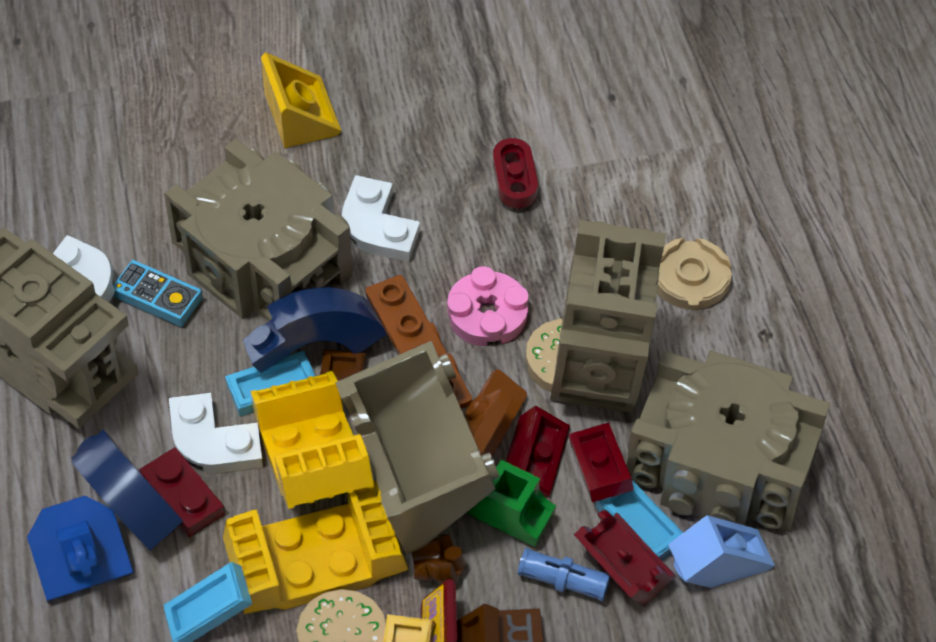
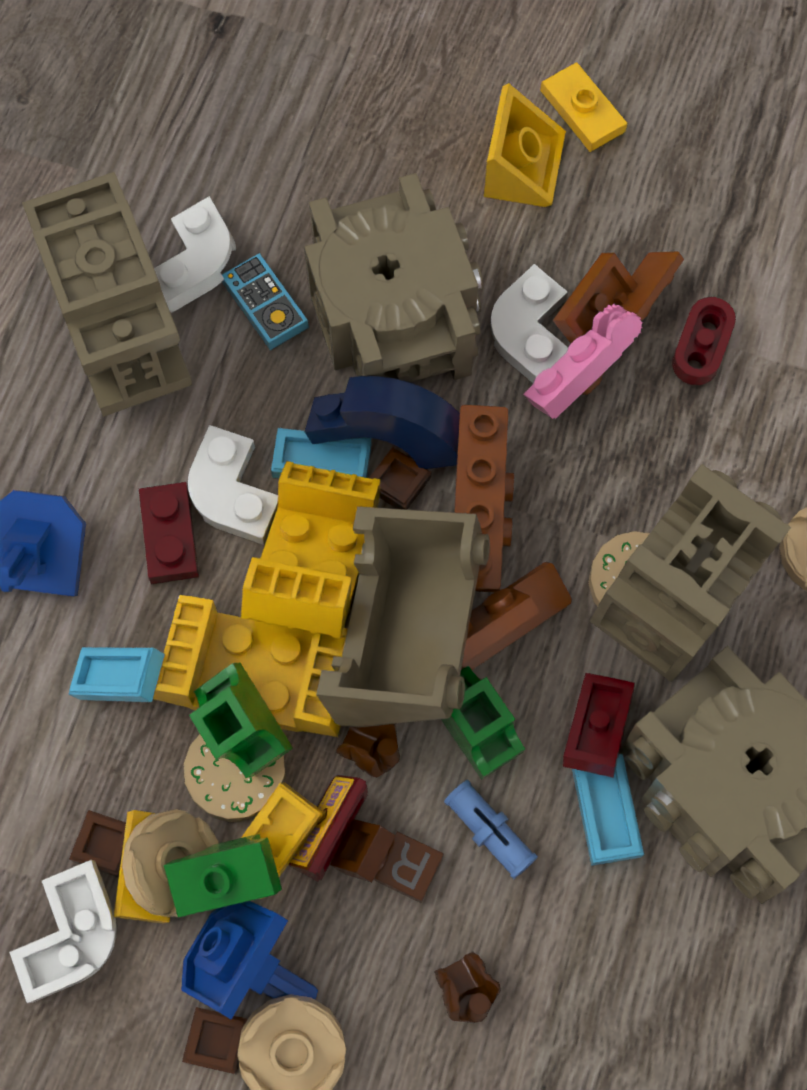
camera: 30 degrees right, 15 degrees up
(125, 489) = (101, 507): dark blue arch -> none
(324, 53) = (583, 107): none -> yellow plate
(330, 585) = (238, 722): none -> green brick
(432, 184) = (612, 284): none -> dark orange bracket
(437, 221) = (584, 361): none -> bright pink hinge
(493, 288) = (596, 457): bright pink plate -> none
(538, 446) = (543, 672): dark red slope -> none
(626, 557) = (561, 847): dark red hinge -> none
(719, 552) = (667, 896): light blue slope -> none

